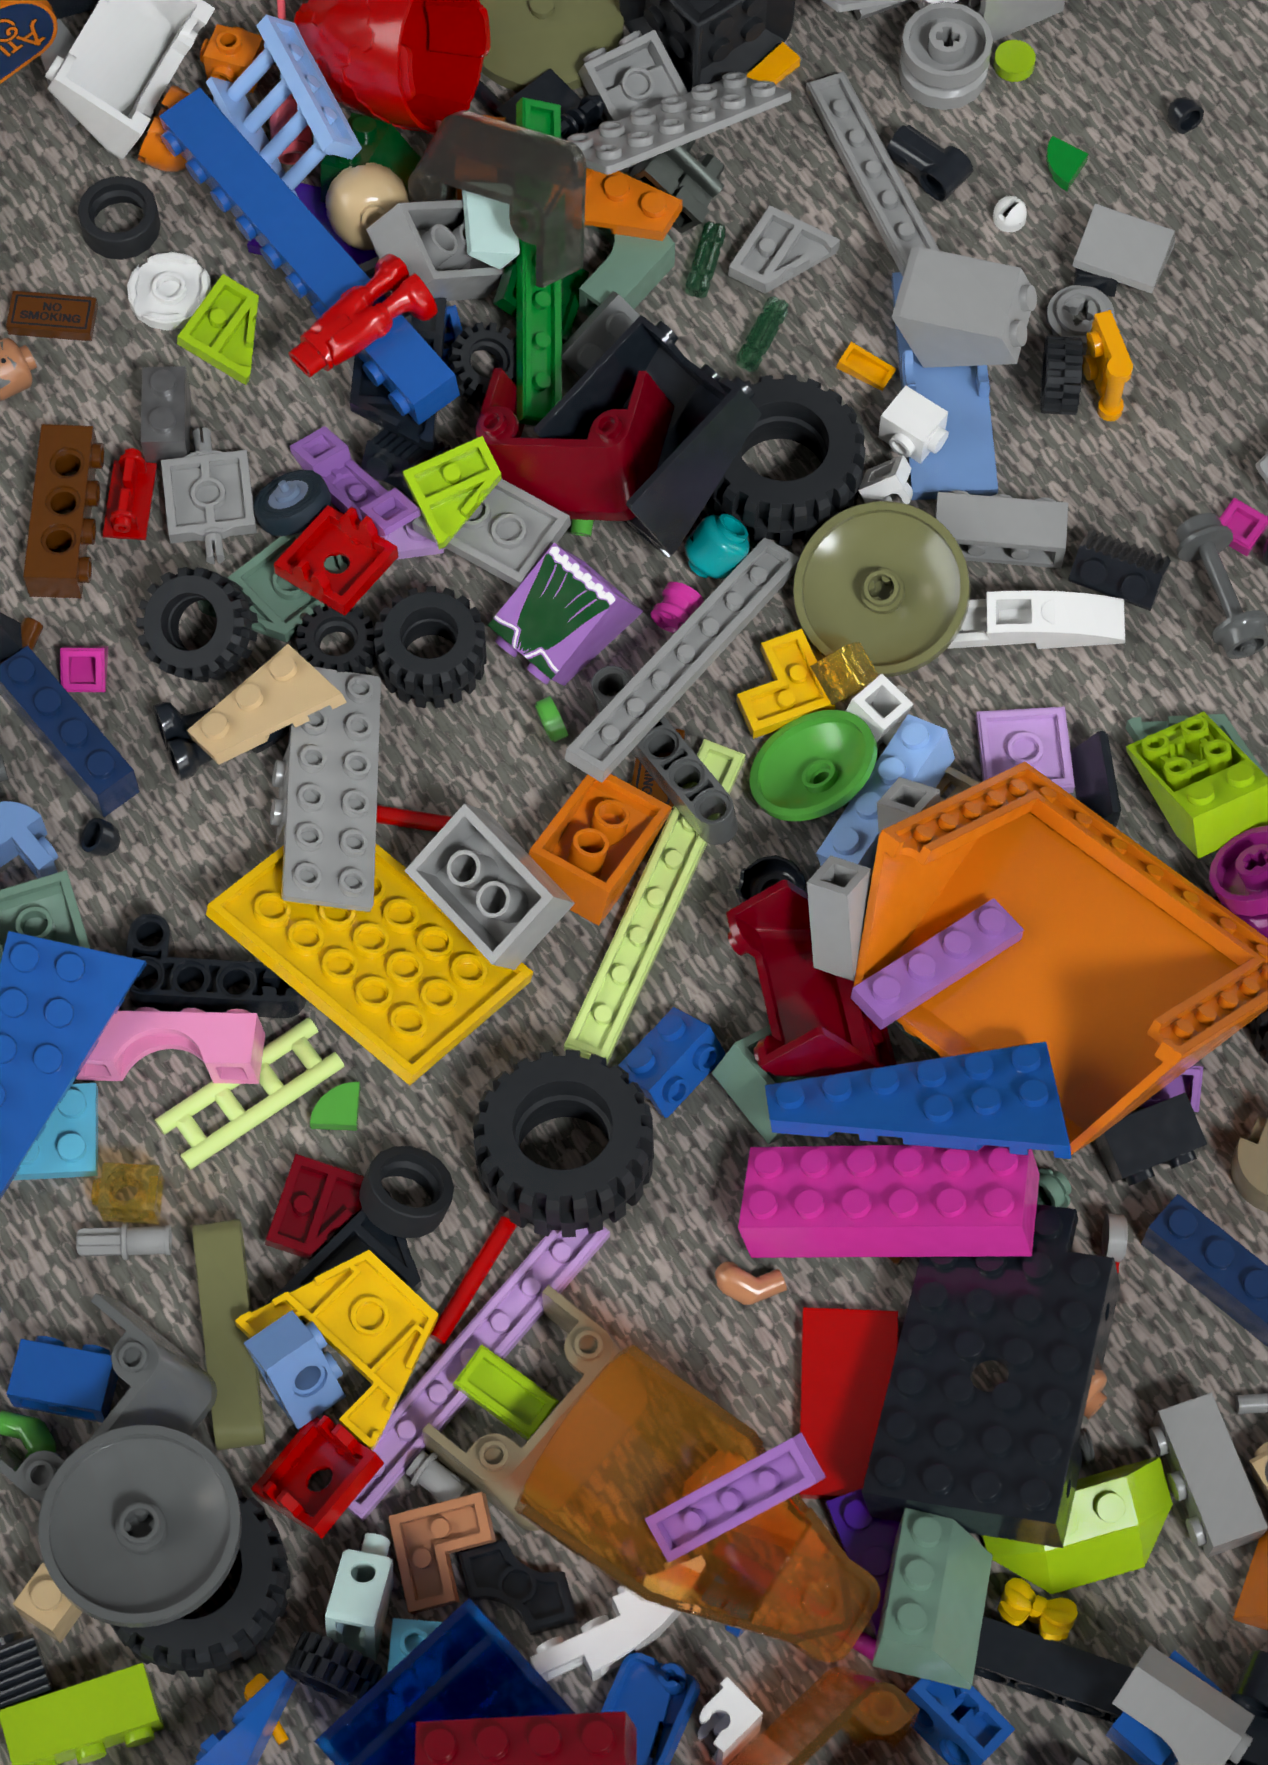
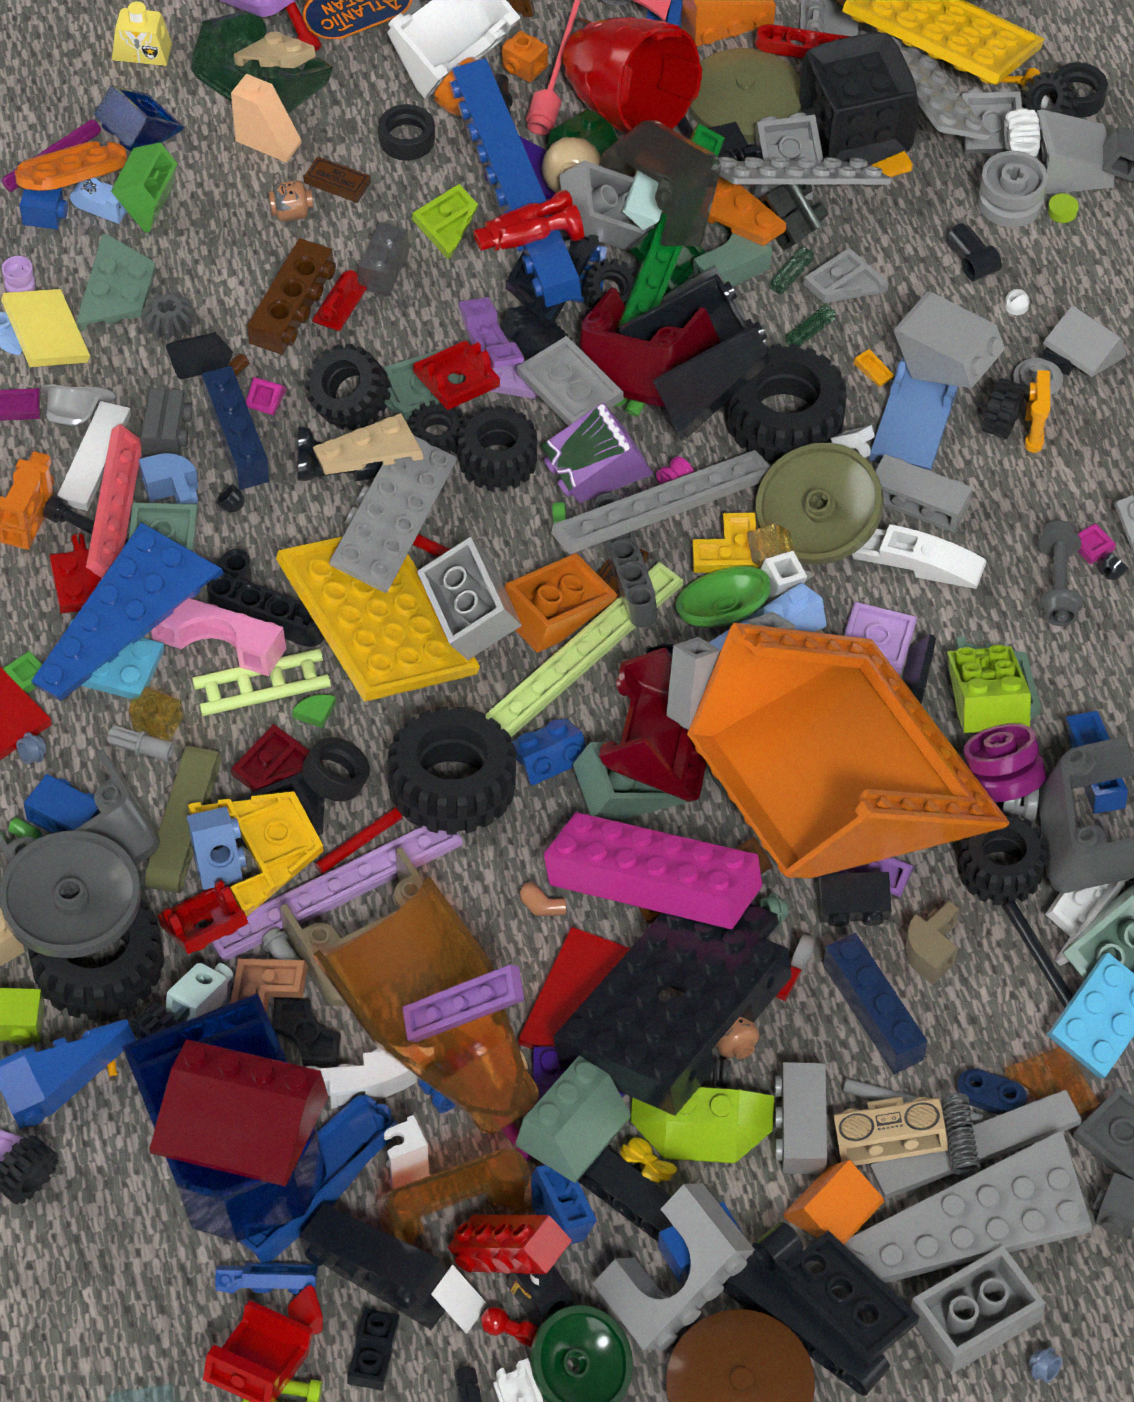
camera: 20 degrees right, 10 degrees down
(174, 300) = (412, 188): white tile -> none
(208, 496) = (391, 316): light grey plate -> none
(291, 502) = (443, 333): black wheel -> none
(309, 88) = (560, 89): light blue fence -> none
(453, 487) = (551, 350): lime wing -> none
(505, 1392) = (344, 906): lime tile -> none
(717, 546) = (718, 443): teal head -> none
(869, 167) = (930, 238): light grey tile -> none
(913, 425) = (886, 408): white brick -> none
(936, 963) = (750, 736): medium lavender plate -> none
(941, 1102) = (707, 813): blue wing -> none
(1064, 162) = (1070, 281): green tile -> none
(1119, 569) = (992, 541): black brick -> none

